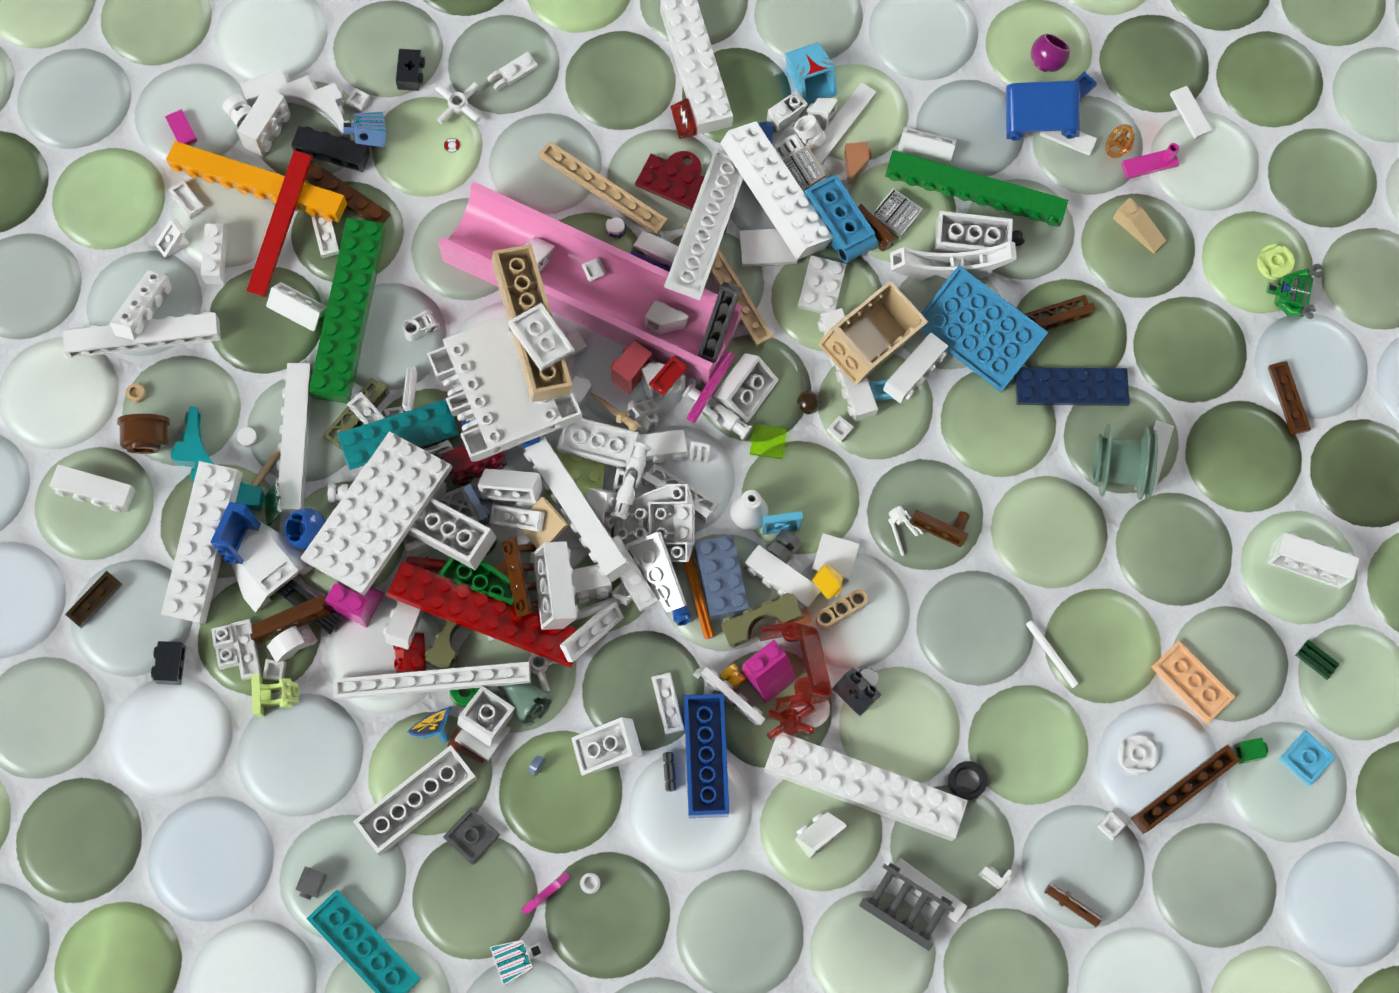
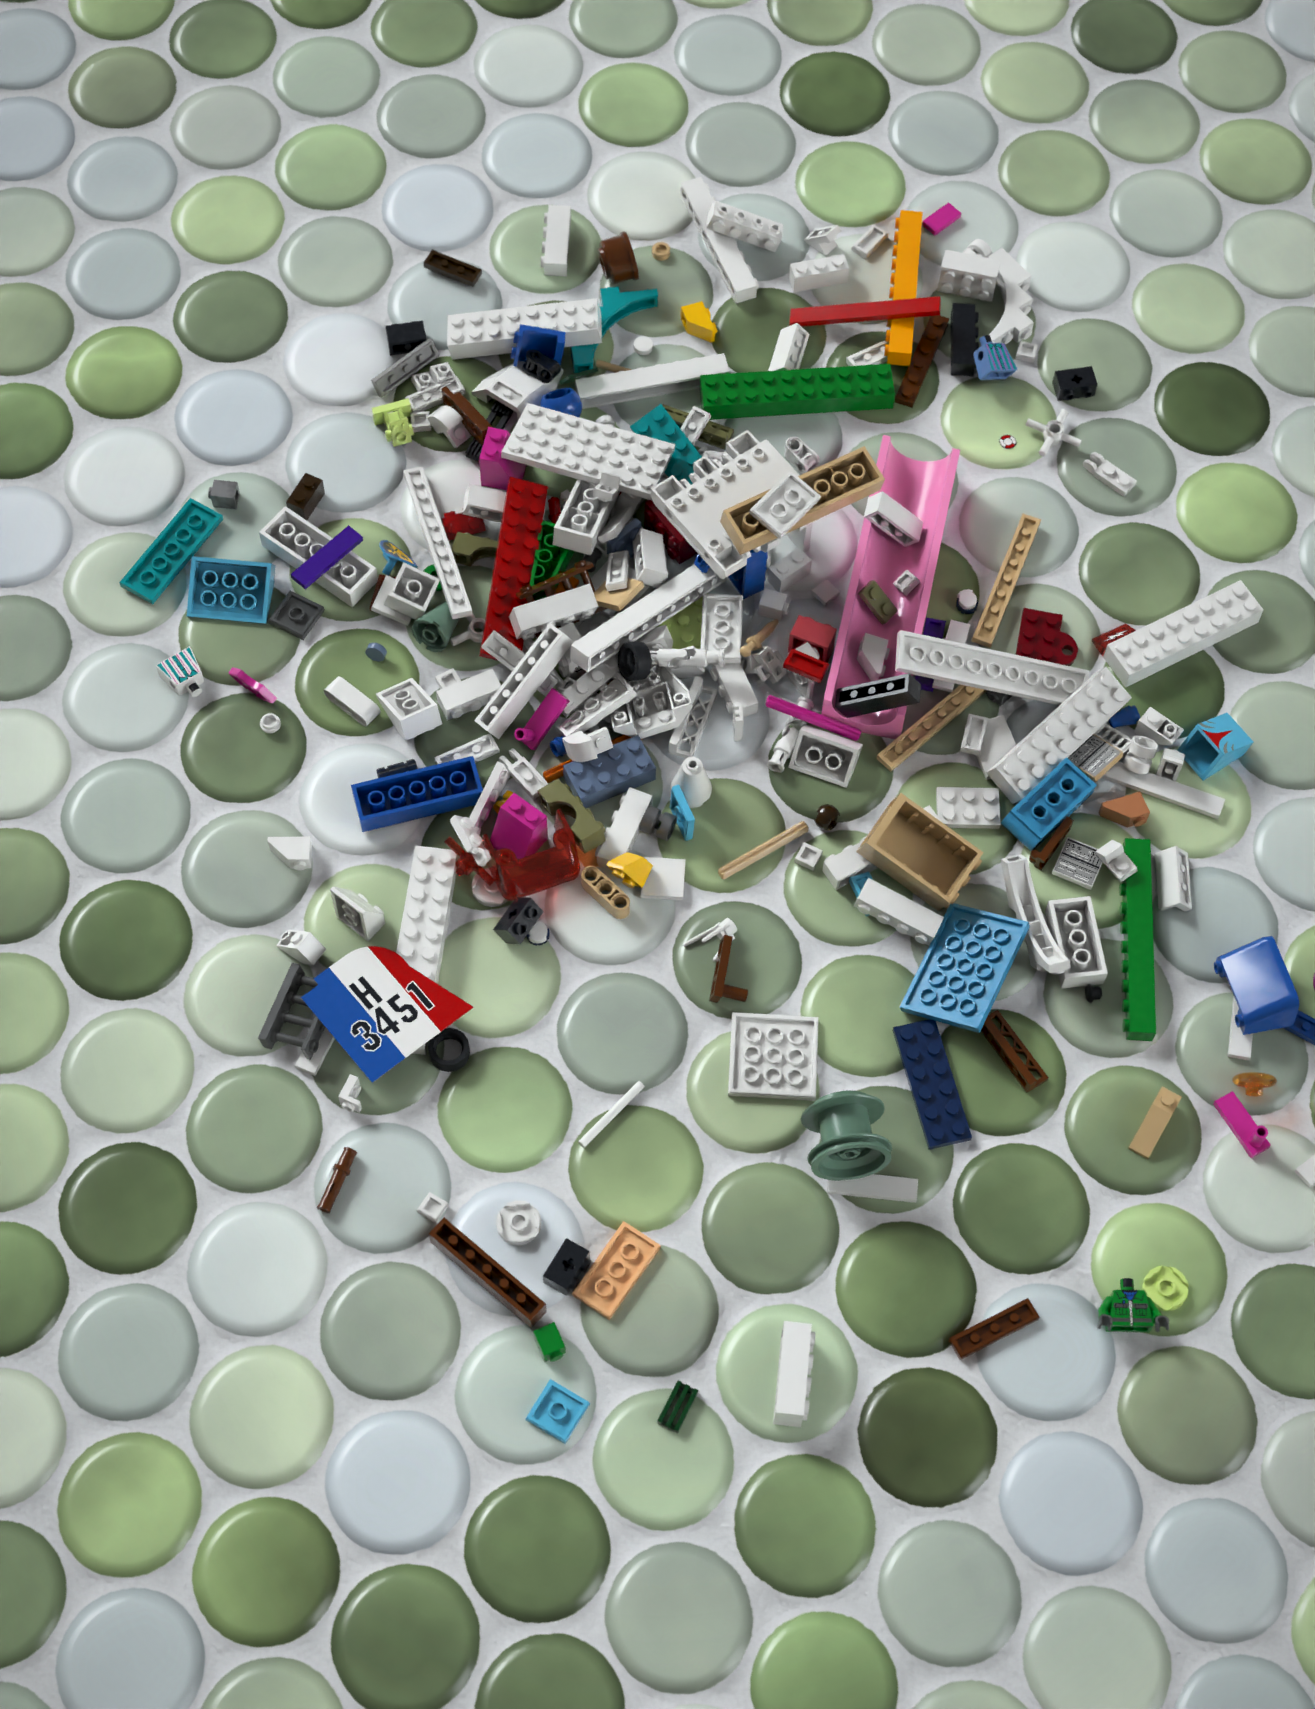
camera: 80 degrees right, 10 degrees down
(207, 671) = (405, 367): none -> light grey tile
(237, 378) = (698, 322): none -> yellow slope
(255, 535) = (541, 367): none -> black piece
(338, 800) = (306, 496): none -> dark brown brick
(427, 895) = (230, 589): none -> medium azure slope
(428, 790) = (326, 557): none -> dark purple tile
(434, 502) = (608, 487): none -> white bracket
(464, 506) = (616, 524): none -> white tile
(586, 799) = (352, 701): none -> white beam
(587, 703) = (447, 678): none -> white plate
(607, 686) = (468, 694): none -> white brick
(611, 298) = (877, 602): none -> olive plate
(619, 630) = (524, 681): none -> white brick
(622, 515) = (642, 661): none -> black tyre
(656, 624) = (542, 719): none -> dark pink piece
(702, 590) = (586, 747): none -> white brick
(703, 654) = (524, 773): none -> white hinge
(738, 884) = (293, 851): none -> white slope
(755, 259) = (974, 734): none -> white tile
(768, 441) = (773, 791): clear neon green piece -> none
(775, 714) = (470, 839): none -> white hinge
(826, 465) = (763, 850): none -> tan axle
(838, 895) = (301, 946): none -> white slope
(907, 181) = (1116, 860): none -> white slope
(926, 831) = (381, 1007): none -> sticker
(1023, 506) = (773, 1056): none -> white tile
(1177, 720) = (567, 1255): none -> black brick

